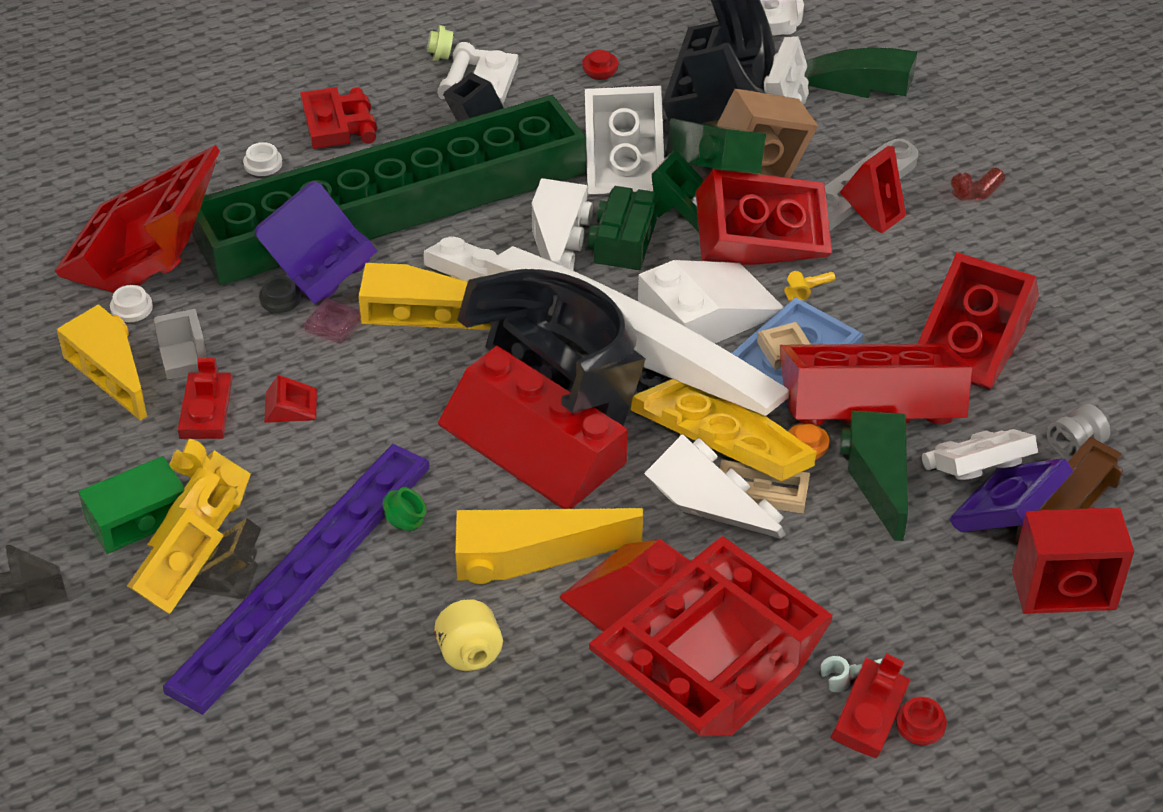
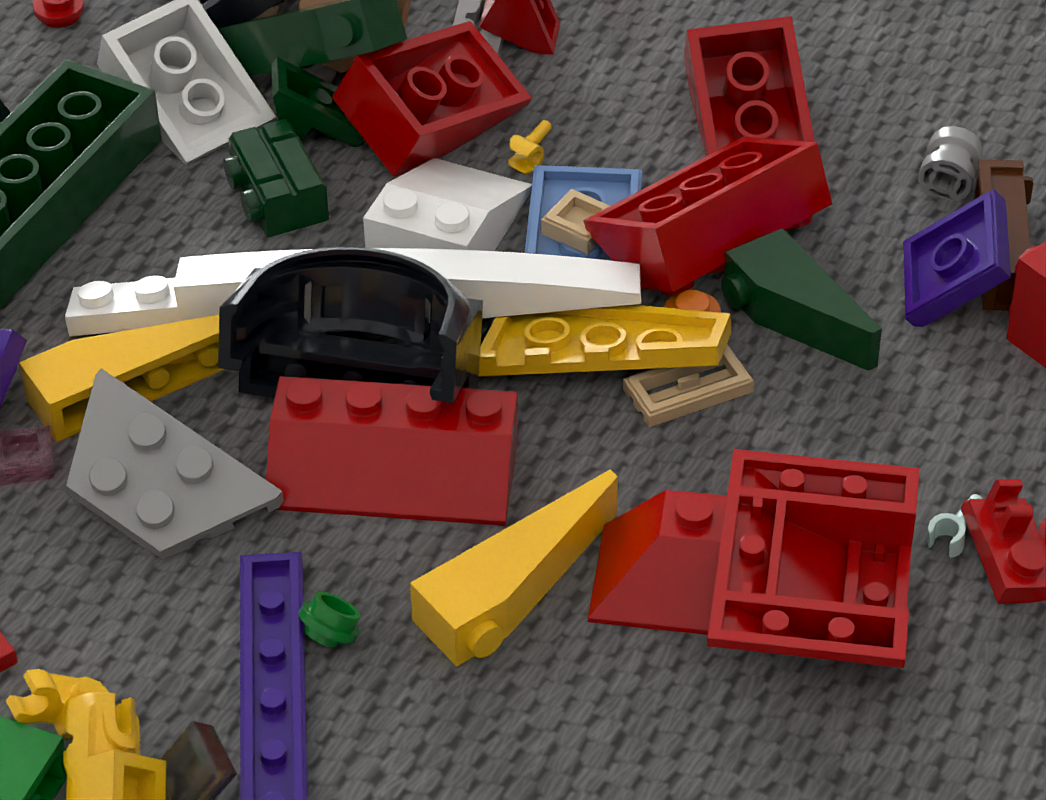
camera: 35 degrees left, 0 degrees up
(290, 401) = (60, 576): red slope -> none
(385, 369) = (157, 474): none -> light grey wing
(466, 632) = (541, 713): light yellow head -> none
(558, 219) = (191, 205): white slope -> none
(702, 489) = (643, 415): white slope -> none
(982, 451) = (885, 231): white plate -> none

